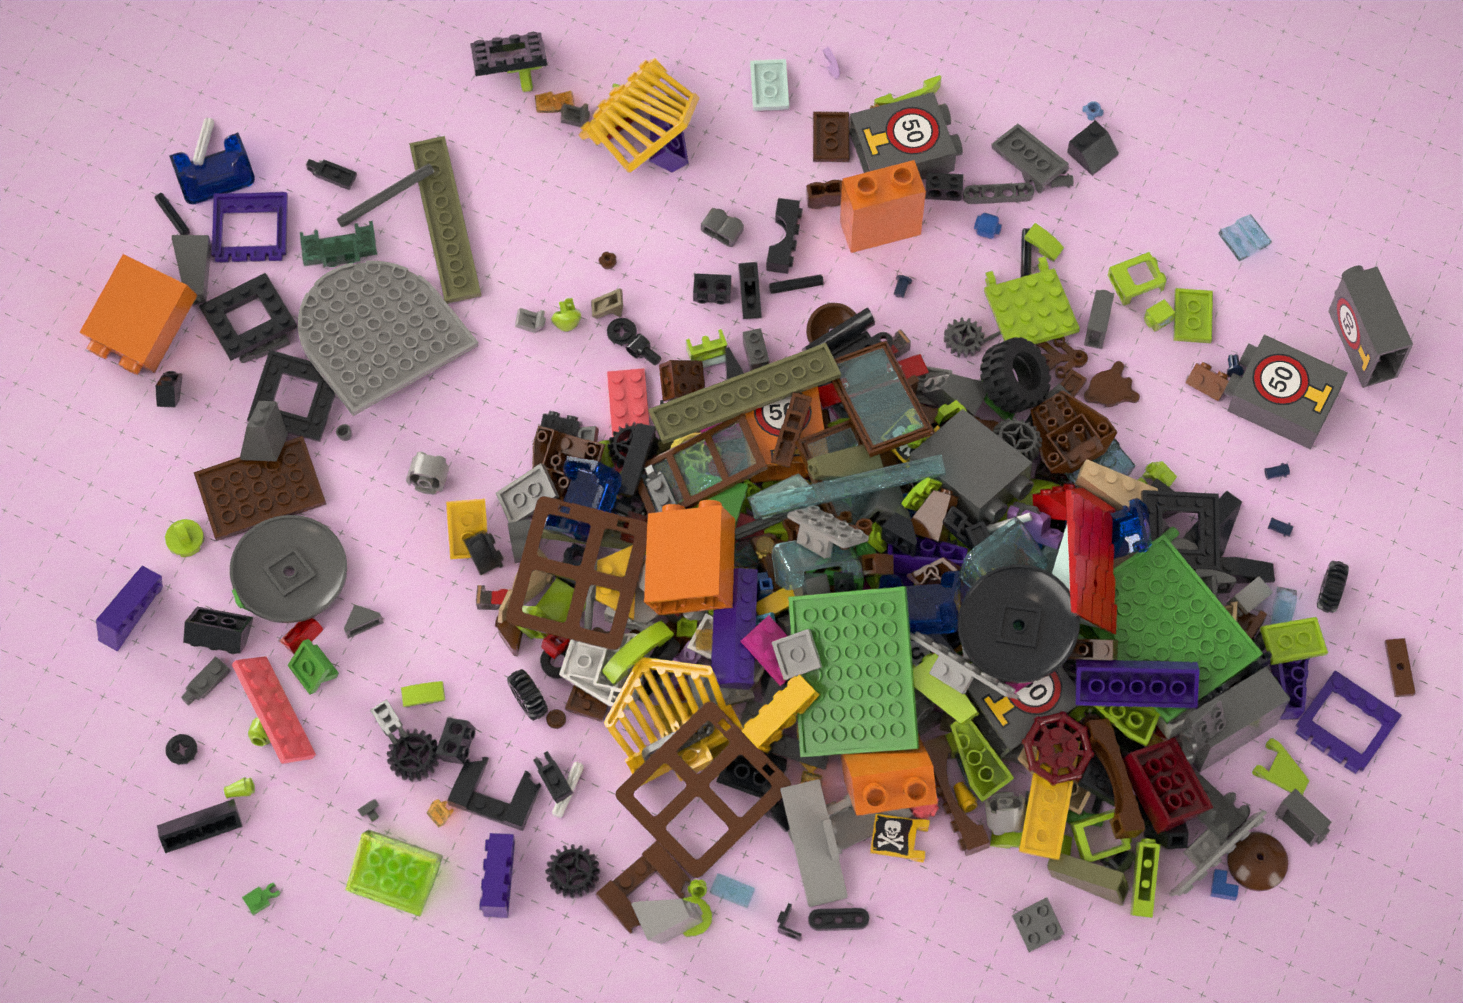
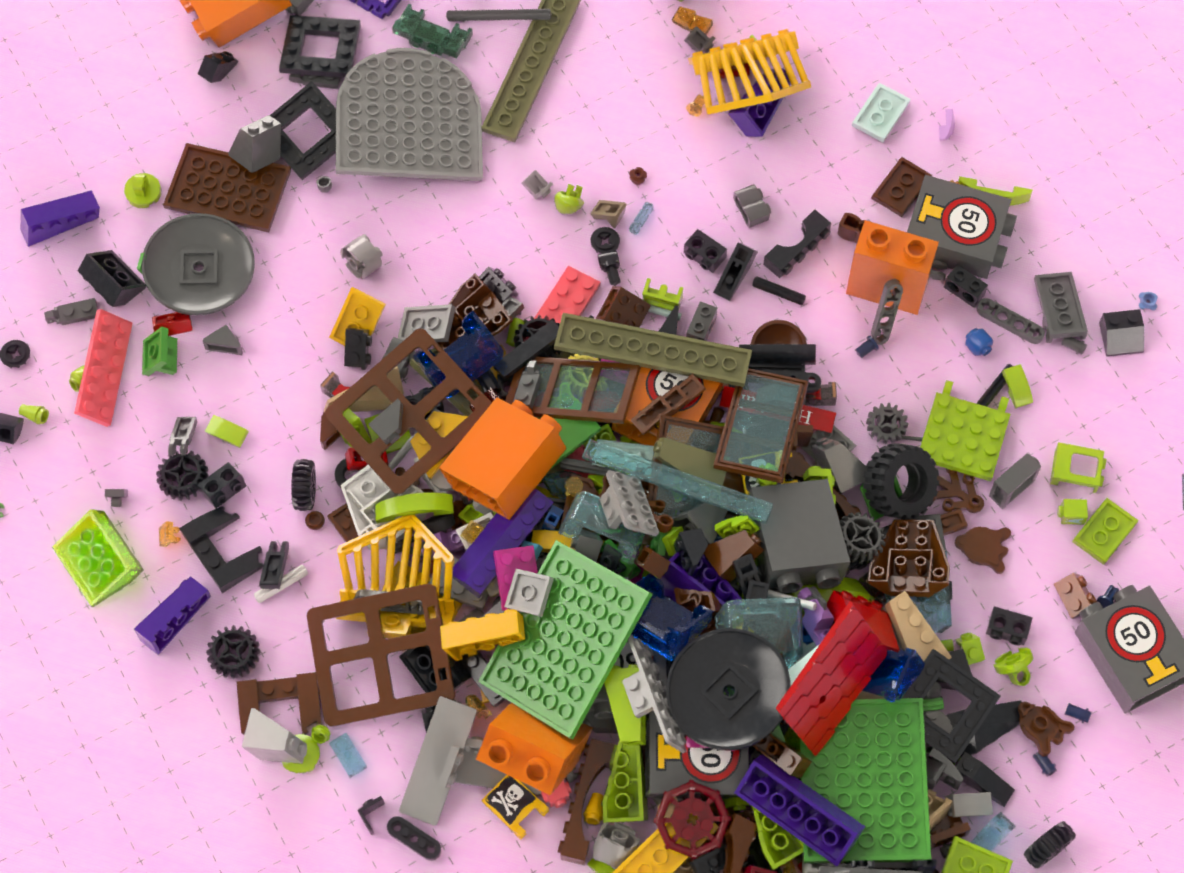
camera: 35 degrees right, 0 degrees up
(572, 594) = (389, 423): none -> dark grey slope
(613, 173) = (694, 107): none -> clear yellow piece
(637, 294) = (641, 218): none -> clear light blue axle
(900, 225) = (890, 312): none -> dark grey beam
(1174, 434) = (1010, 621): none -> black brick
(1203, 463) = (1013, 664): none -> lime tile
(1258, 499) = (1042, 726): none -> reddish brown tile

